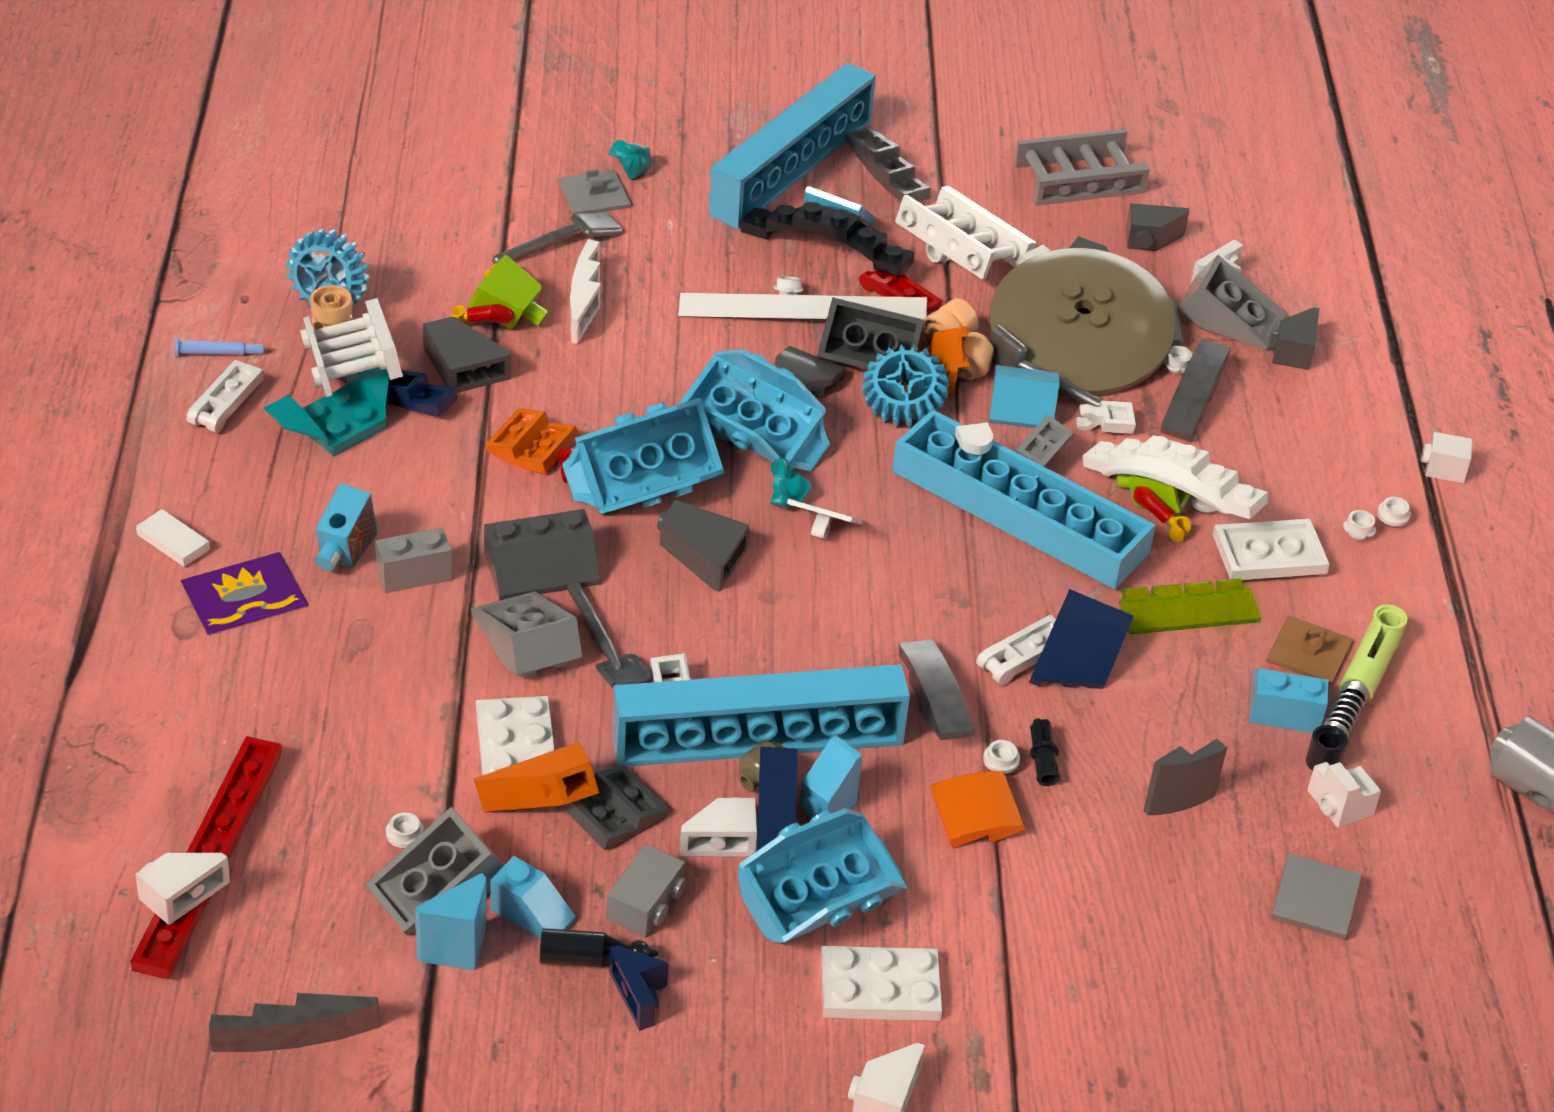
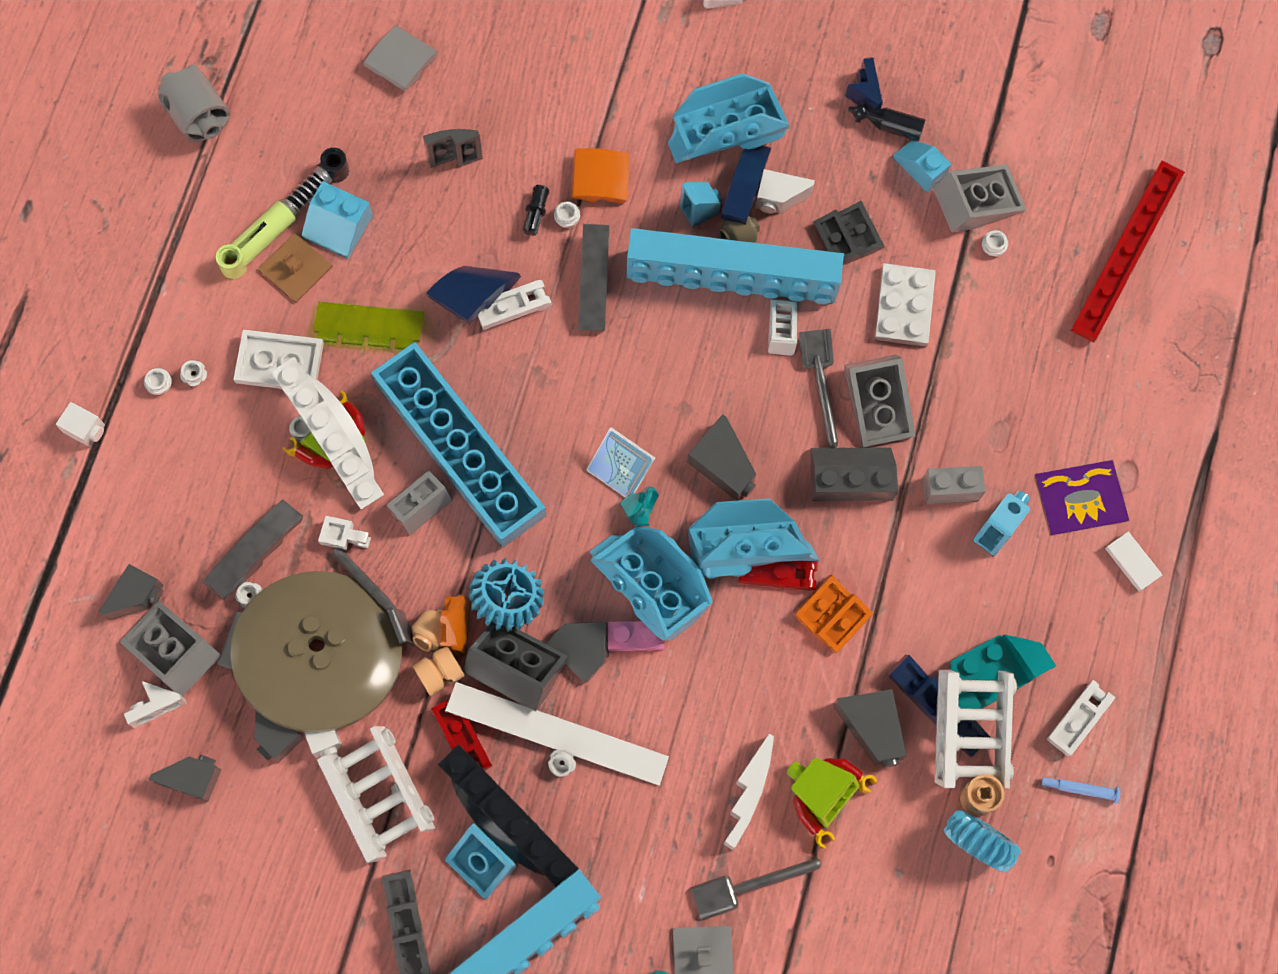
camera: 165 degrees left, 30 degrees up
(181, 882) = (1154, 209): white slope -> none
(308, 1022) = (1092, 106): flat silver slope -> none
(453, 925) = (981, 139): medium azure slope -> none
(539, 781) = (895, 243): orange slope -> none
(646, 891) = (845, 154): light grey brick -> none
(880, 983) = (706, 60): white plate -> none
(974, 438) = (480, 489): white tile -> none
(1023, 396) = (403, 572): medium azure slope -> none
(1081, 184) = (205, 861): light grey fence -> none
(1343, 793) = (341, 124): white brick -> none

